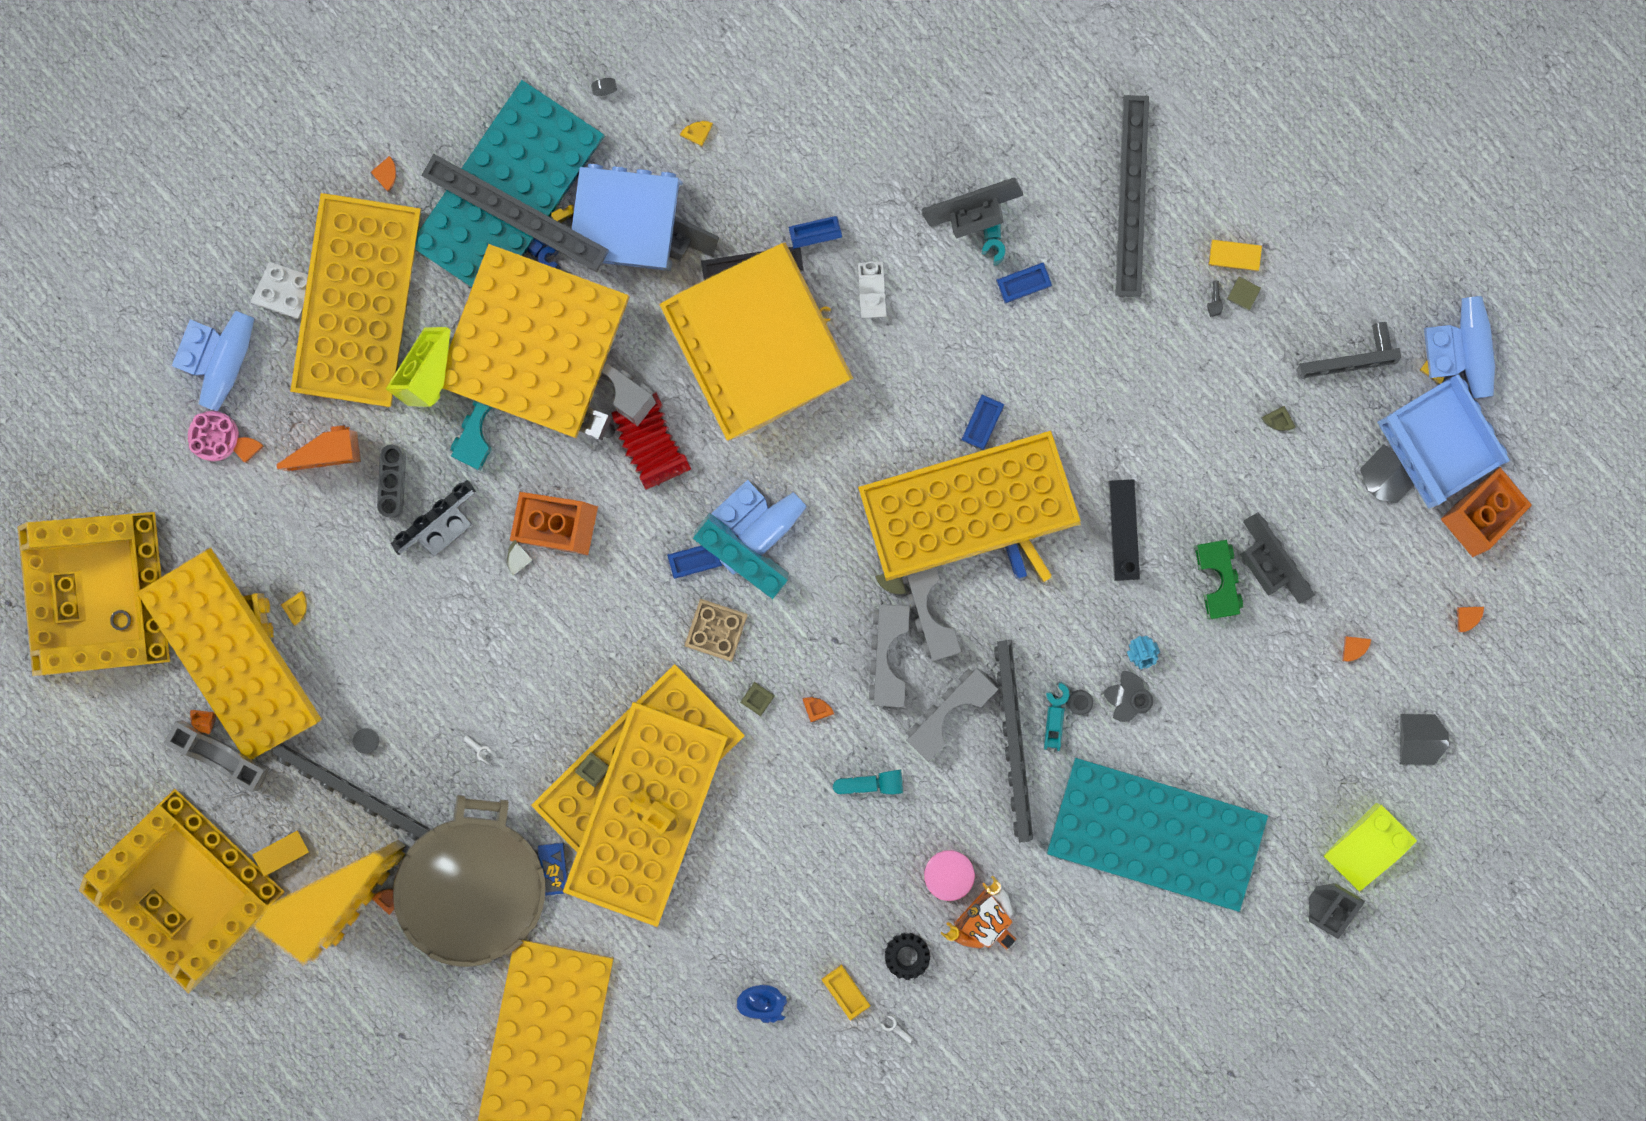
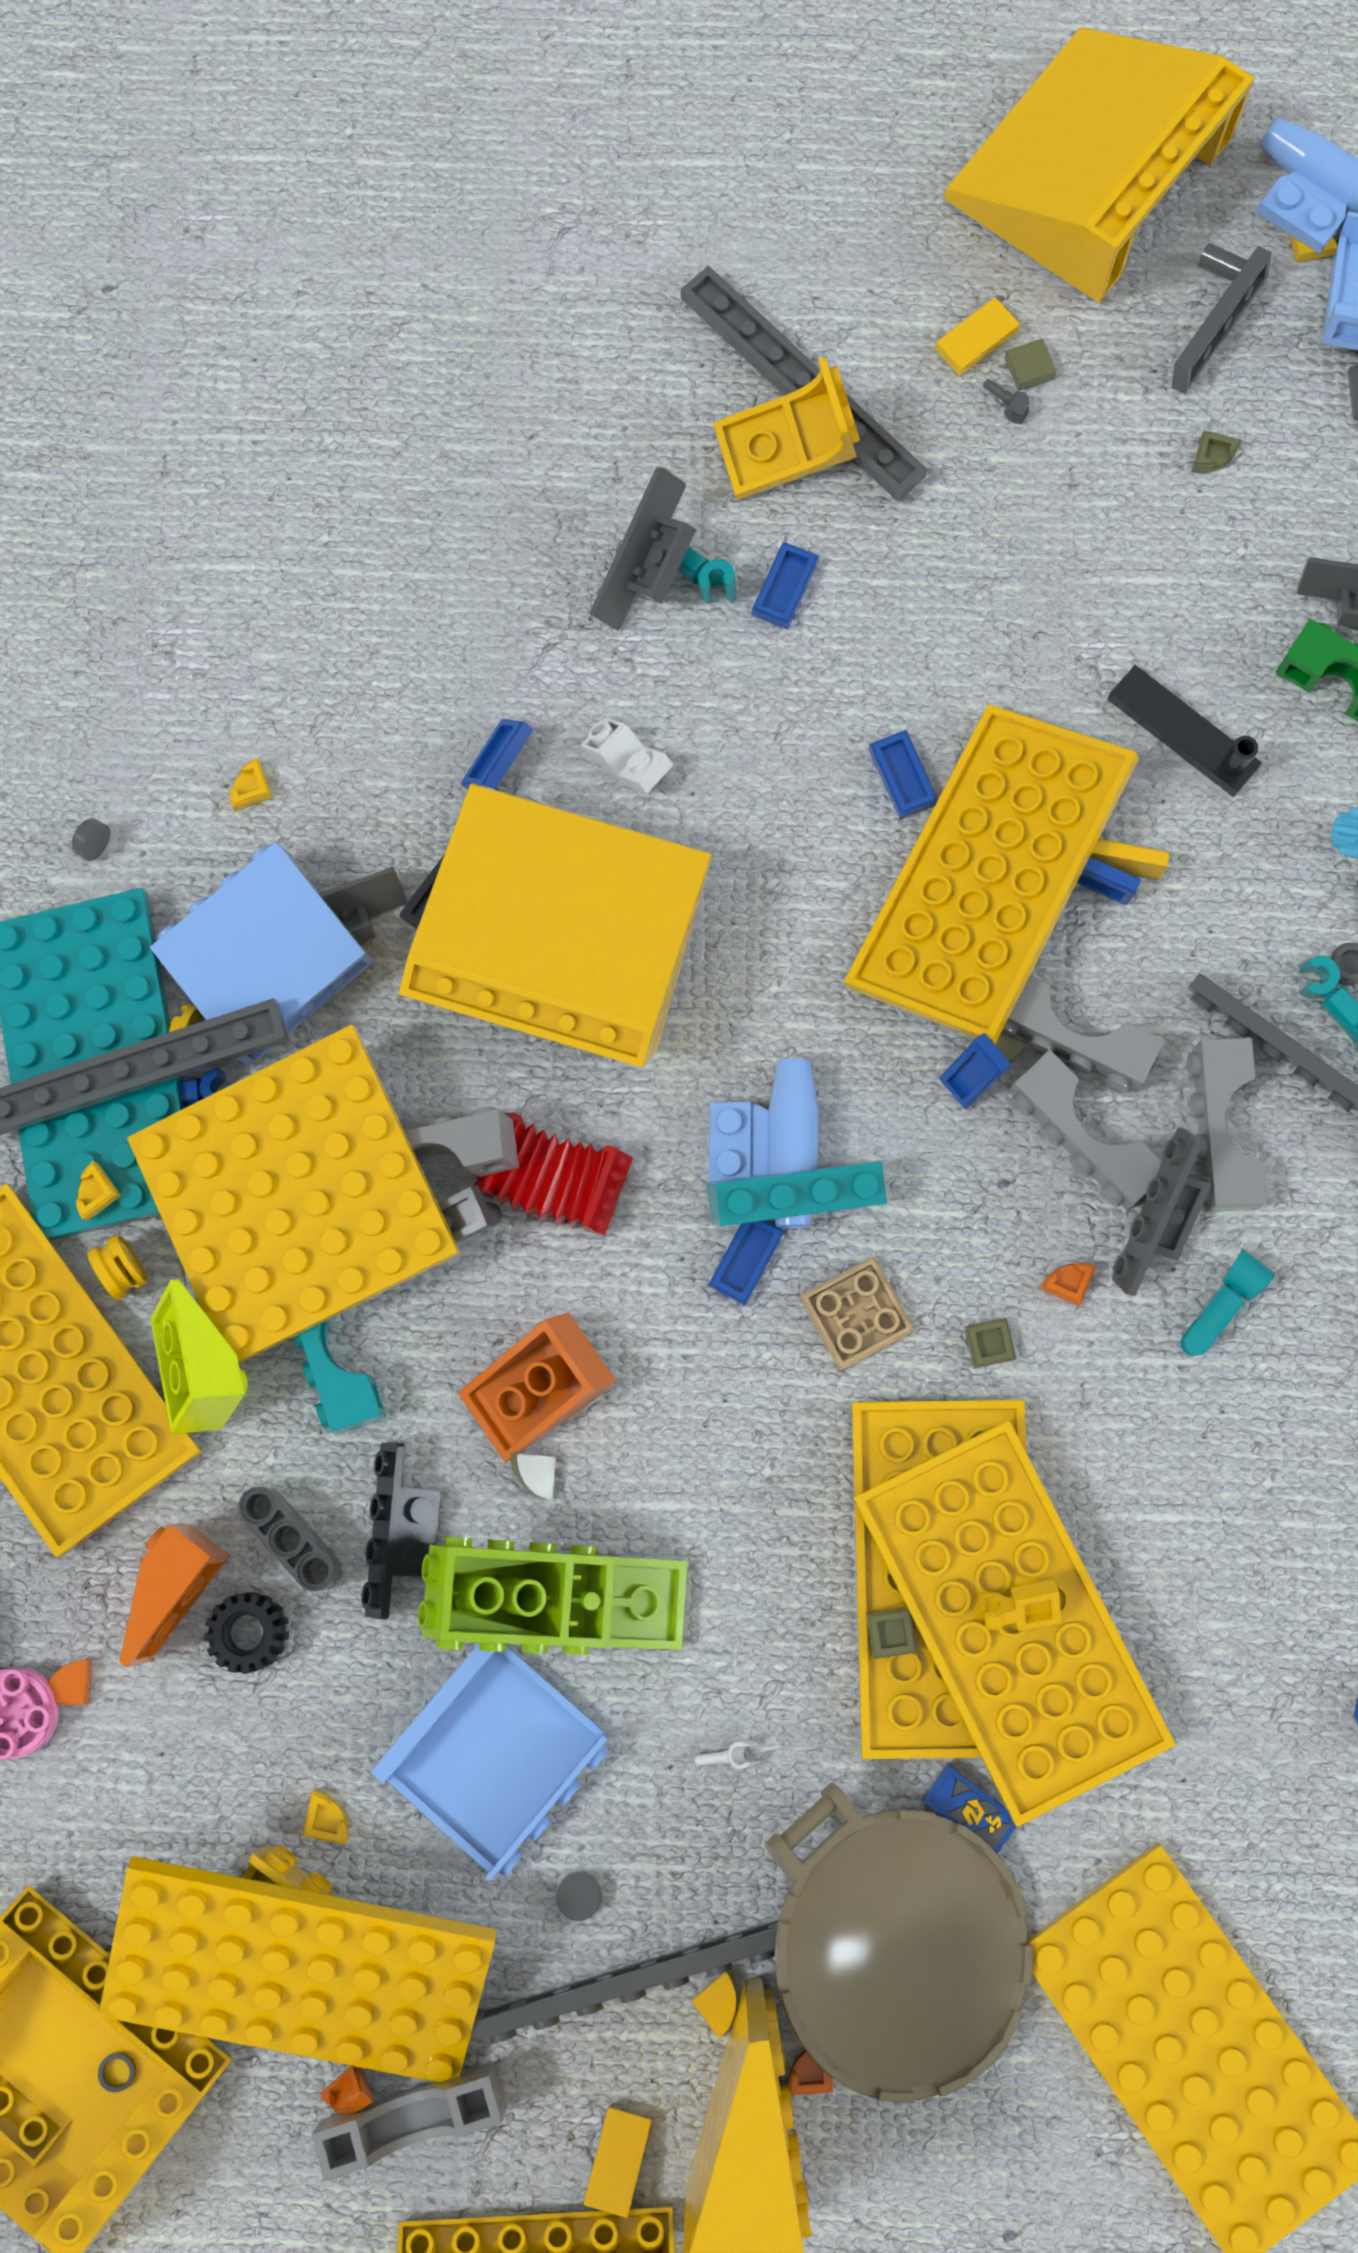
camera: 45 degrees left, 10 degrees down
(321, 501) = (220, 1628): none -> black tyre
(378, 836) = (717, 2003): none -> yellow tile
(387, 652) = (493, 1756): none -> light blue panel
(431, 294) = (117, 1267): none -> yellow wheel
(453, 252) = (95, 1191): none -> yellow tile
(471, 616) = (549, 1598): none -> lime wedge
(868, 582) = (975, 1071): none -> blue tile
(882, 724) = (1167, 1214): none -> dark grey bracket
(1093, 217) = (789, 435): none -> yellow bracket
(1379, 225) = (1099, 150): none -> yellow slope

